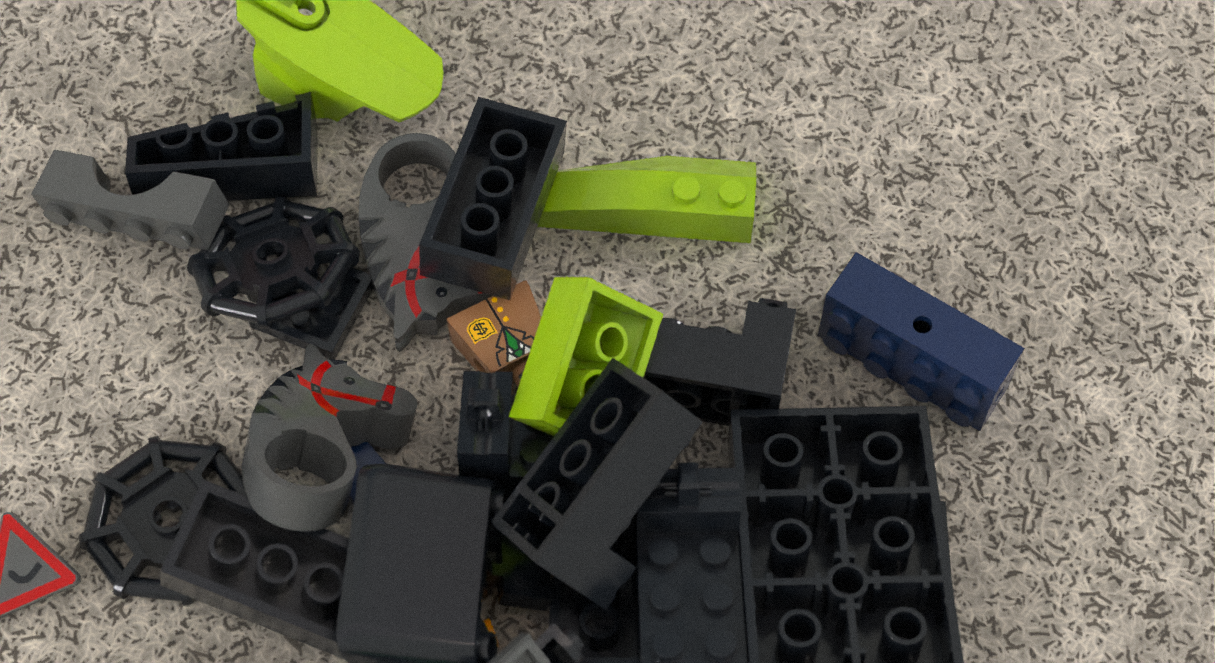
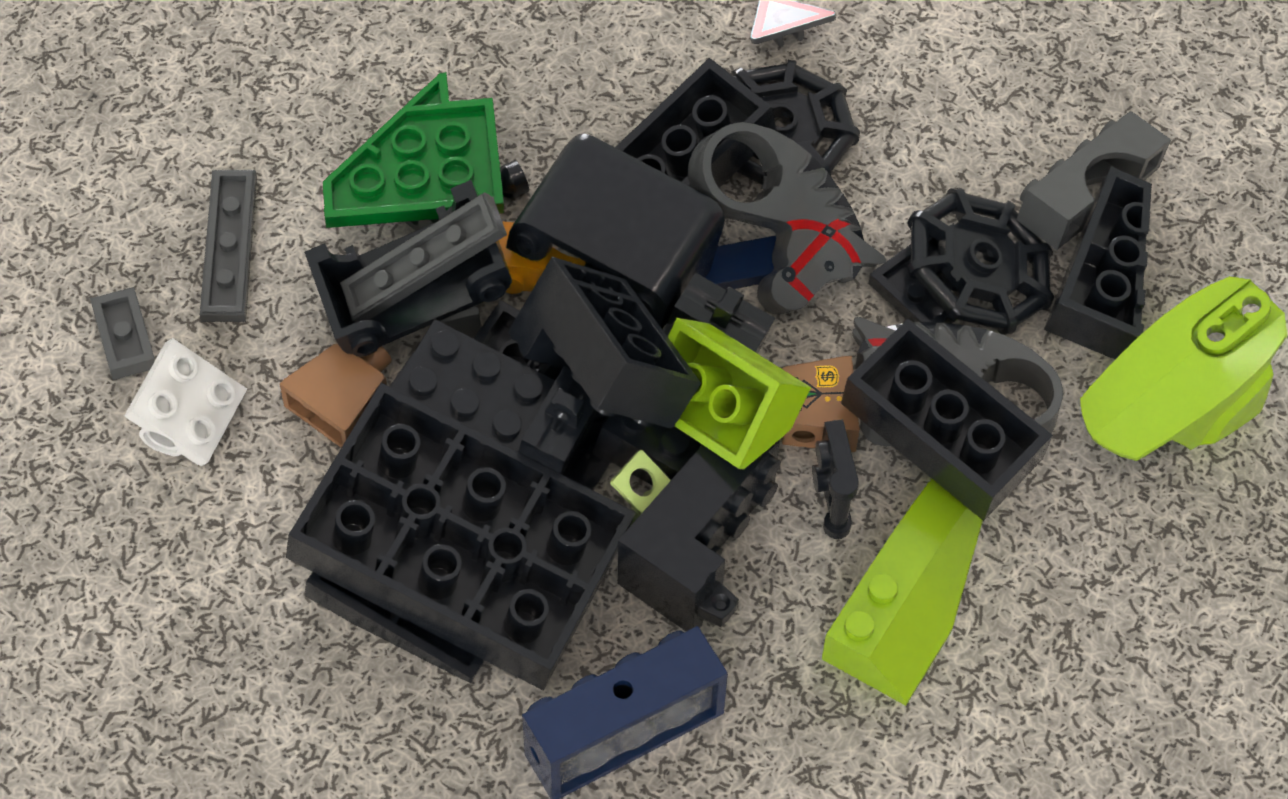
camera: 115 degrees right, 5 degrees down
(584, 261) = (836, 478): none -> black plate
(705, 439) = (621, 482): none -> yellowish green bracket

